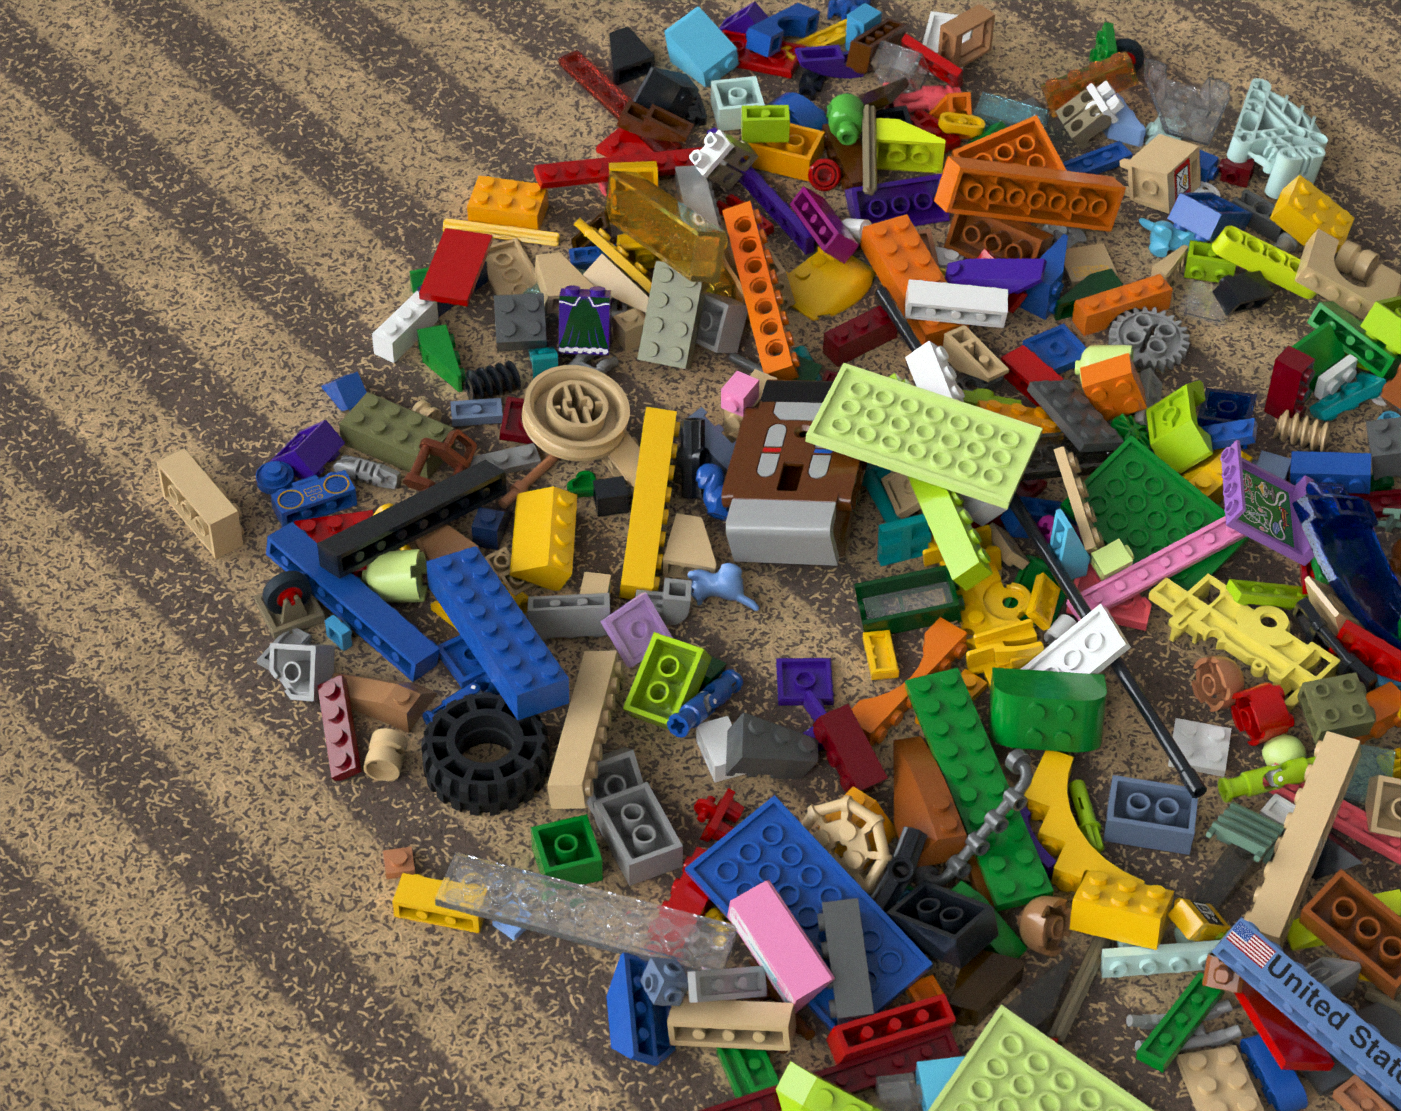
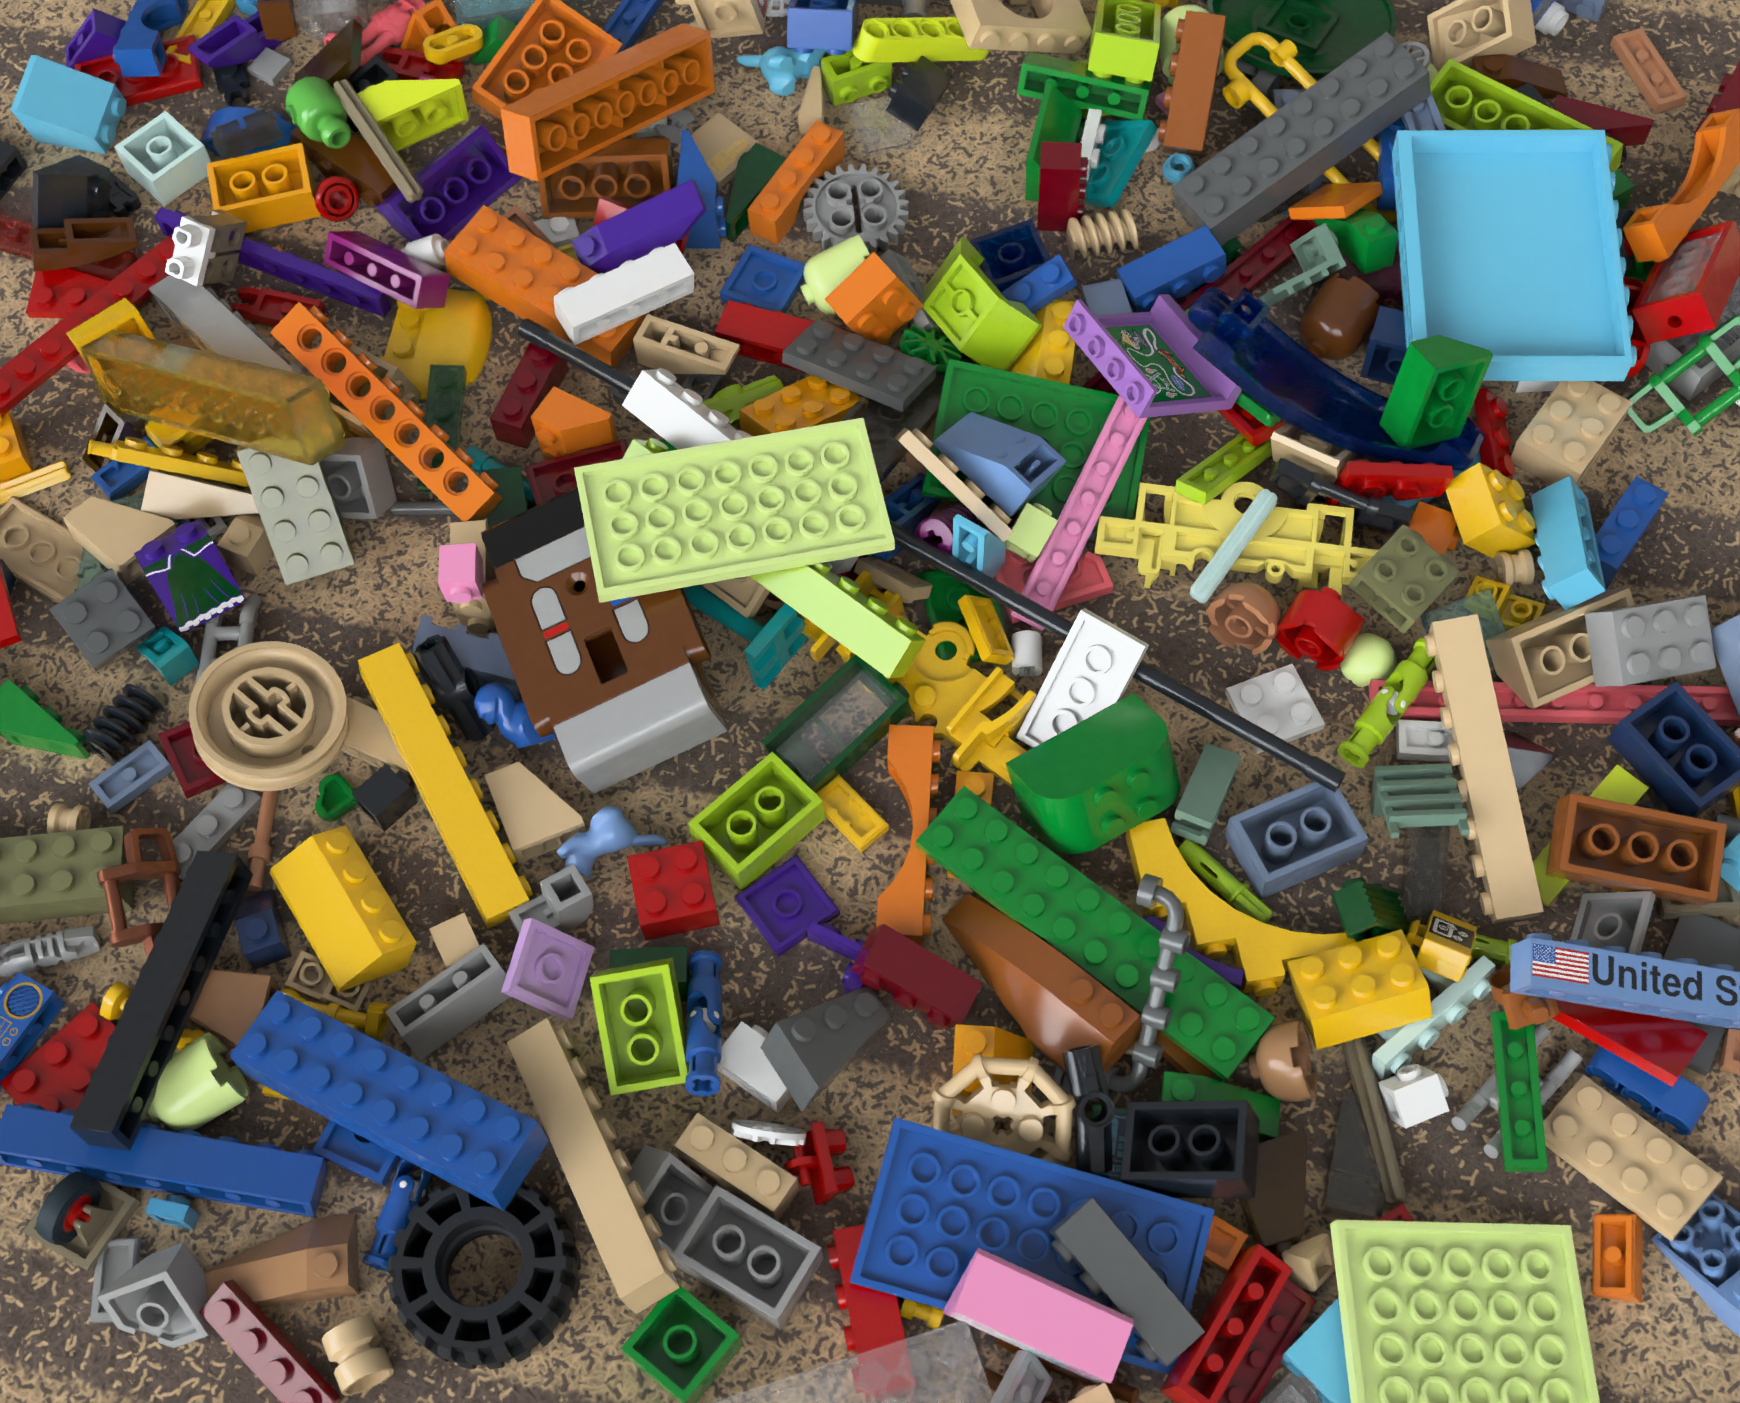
camera: 30 degrees left, 15 degrees up
(668, 786) = (737, 1167): none -> tan brick
(699, 779) = (772, 1132): none -> white wheel
(741, 633) = (673, 890): none -> red brick
(765, 123) = (228, 173): lime brick -> none
(803, 112) = (233, 141): none -> clear smoke hinge
(804, 315) = (445, 407): none -> clear green plate
(819, 624) = (757, 820): none -> lime brick
(840, 85) = (270, 66): none -> light grey tile
(870, 353) = (570, 425): none -> orange slope
(968, 1032) = (1311, 1262): none -> tan slope
(1111, 758) = (1205, 794): none -> sand green piece
(1113, 987) = (1414, 1095): none -> white brick
(1120, 508) = (1000, 459): none -> medium blue slope
(1161, 868) = (1369, 910): none -> dark green brick
(1239, 635) = (1233, 546): none -> light aqua axle

